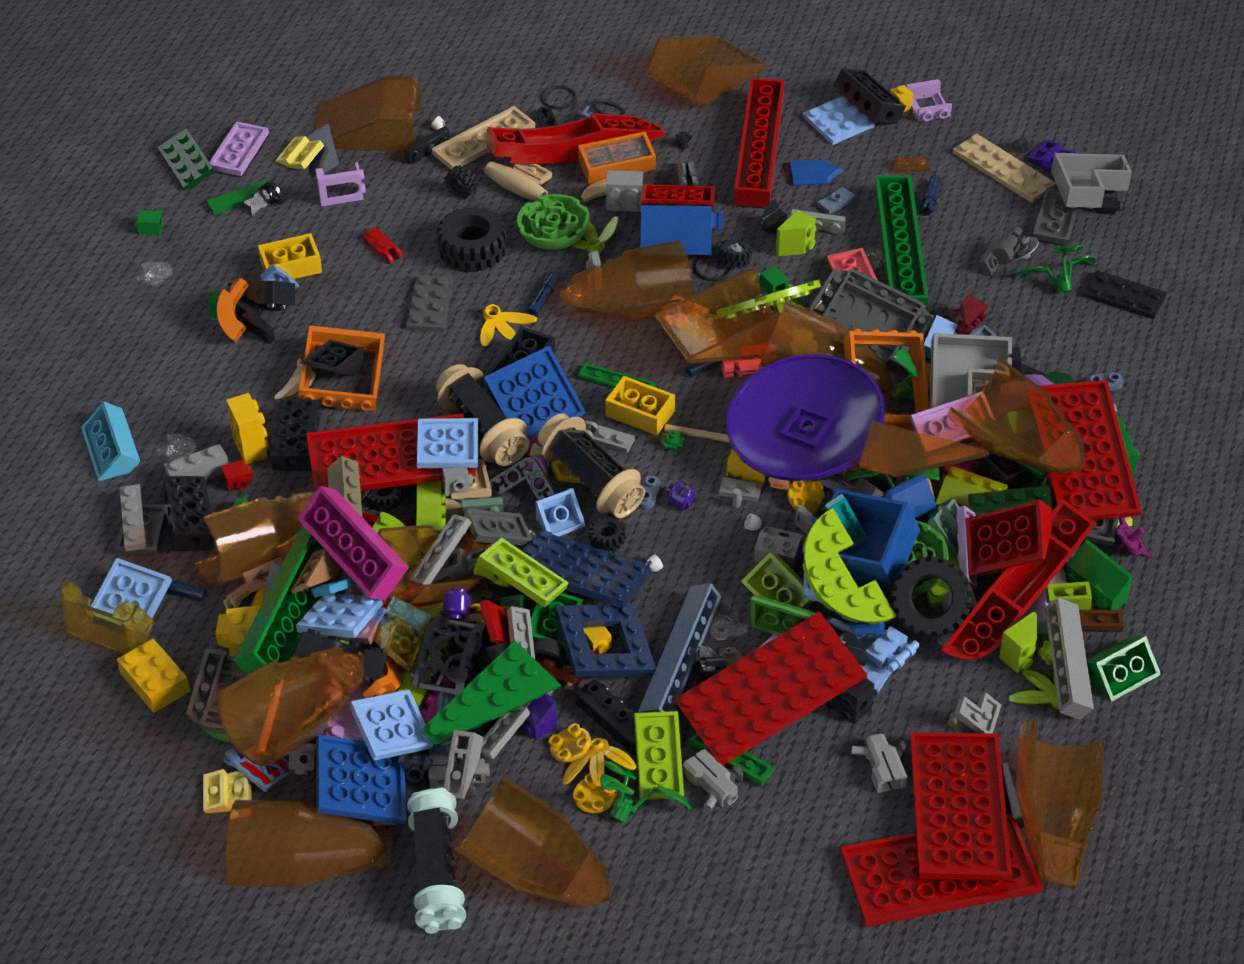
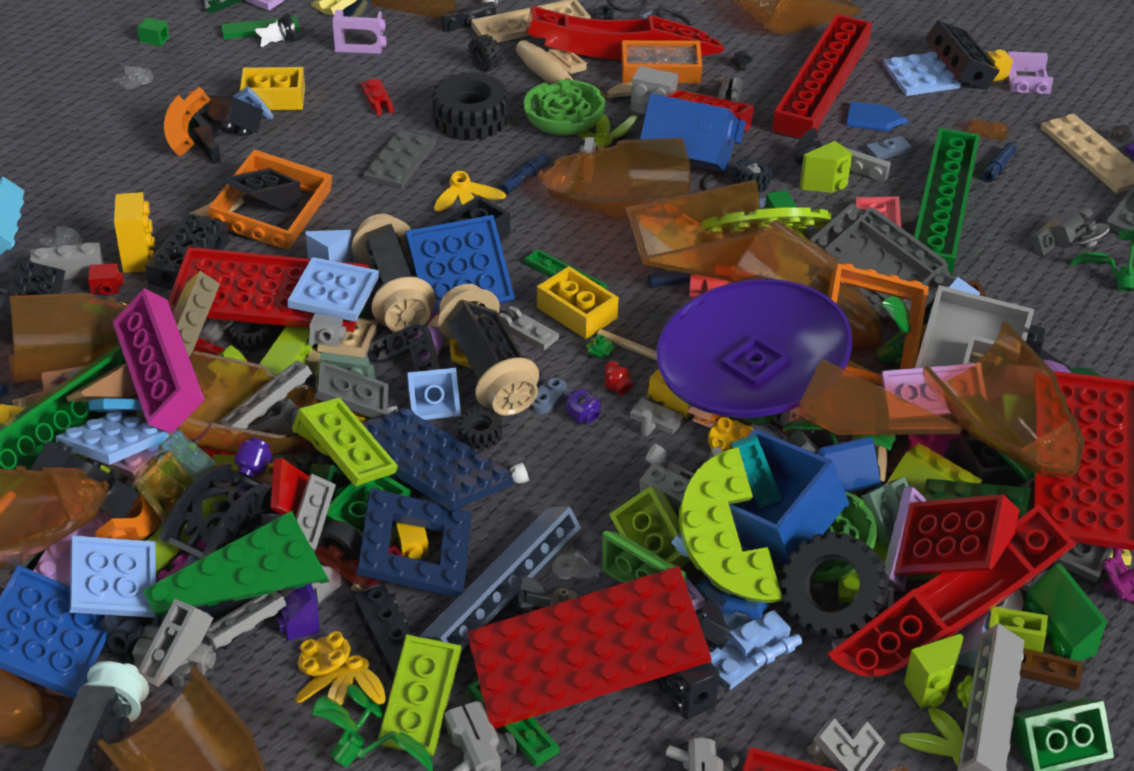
camera: 15 degrees right, 5 degrees down
(417, 404) = (330, 245): none -> light blue slope
(592, 798) = (319, 730): yellow dish -> none
(697, 465) = (617, 378): none -> red animal
(970, 315) = (1004, 285): dark red slope -> none

